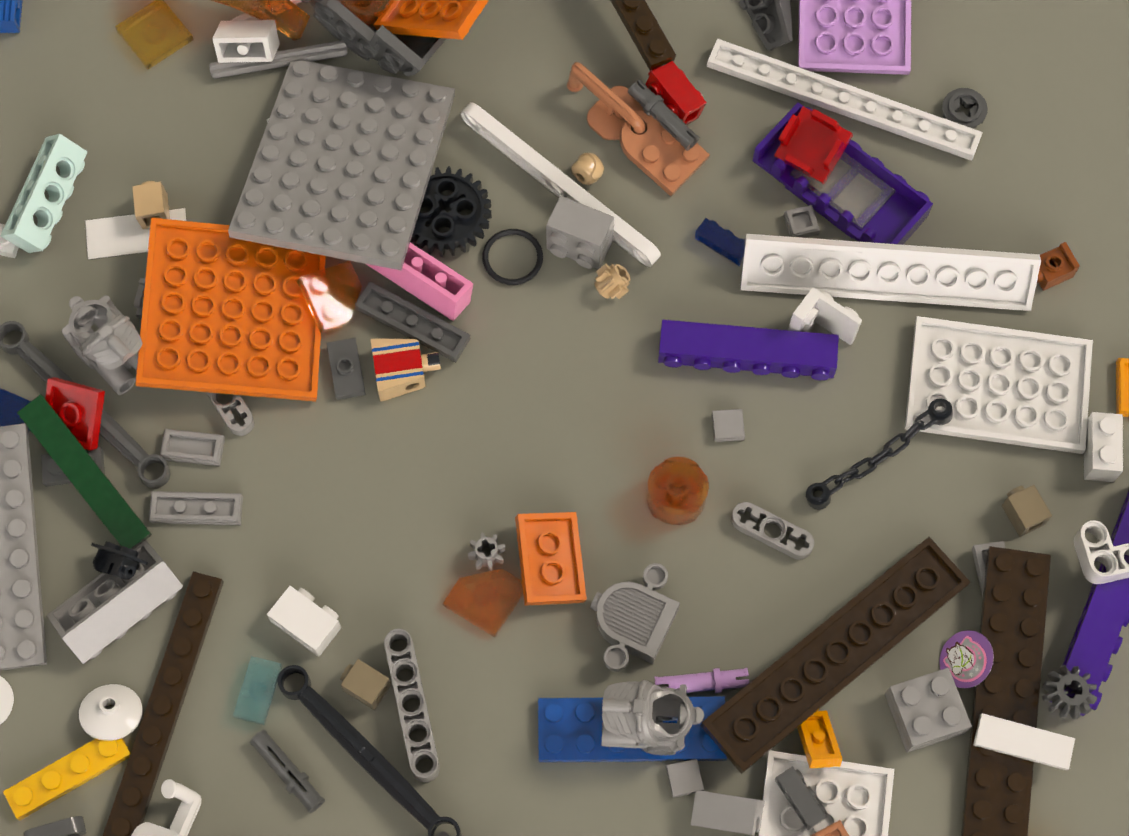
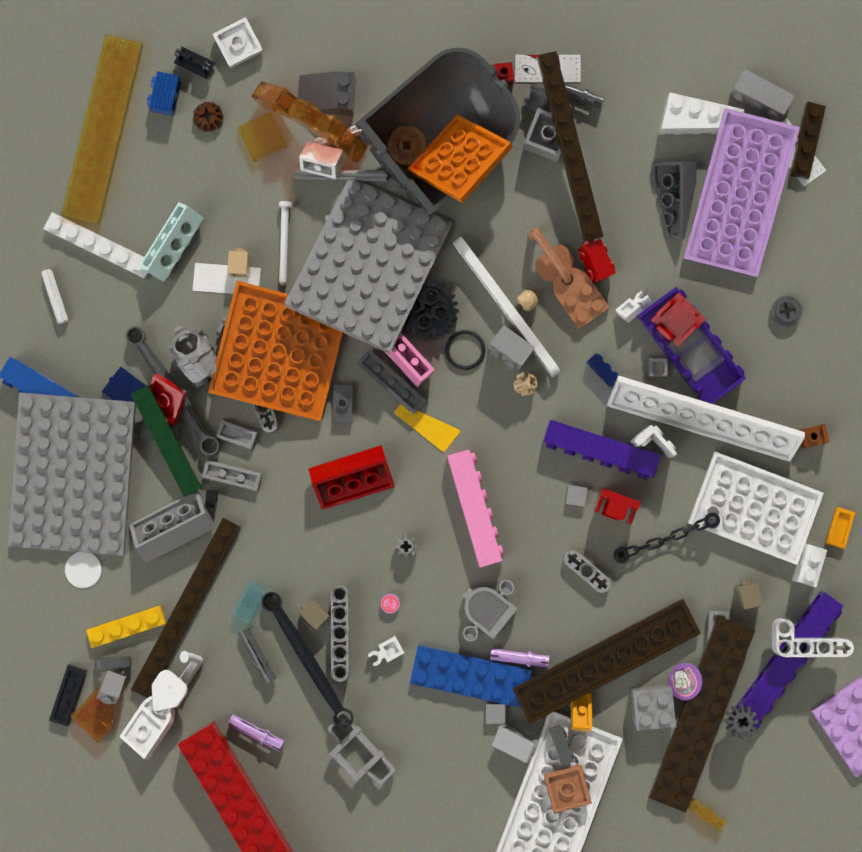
camera: 15 degrees right, 15 degrees up
(81, 22) = (215, 120): none -> reddish brown gear
(114, 722) = (159, 604): white dish -> none
(116, 560) = (178, 505): black hinge -> none
(169, 546) = (211, 498): none -> black axle
(205, 115) = (284, 205): none -> white bar
(305, 620) = (285, 564): white brick -> none
(331, 295) = (342, 354): clear orange plate -> none
(381, 469) = (351, 477): none -> red slope
(401, 366) = (377, 411): torso -> none
(480, 645) = (390, 603): none -> tile
(485, 599) = (400, 574): clear orange plate -> none
(492, 379) = (433, 430): none -> yellow sticker
(494, 715) = (389, 650): none -> white plate
(550, 558) = (444, 560): orange plate -> none
(579, 473) = (474, 508): none -> bright pink brick
(636, 713) = (473, 676): light grey helmet -> none
(654, 106) = (588, 282): dark grey pin -> none
(672, 507) = (537, 545): clear orange brick -> none
(741, 149) = (632, 308): none -> white plate
(791, 418) = (616, 506): none -> red panel
(844, 99) = (708, 287): white plate -> none
(1024, 741) = (705, 742): white tile -> none

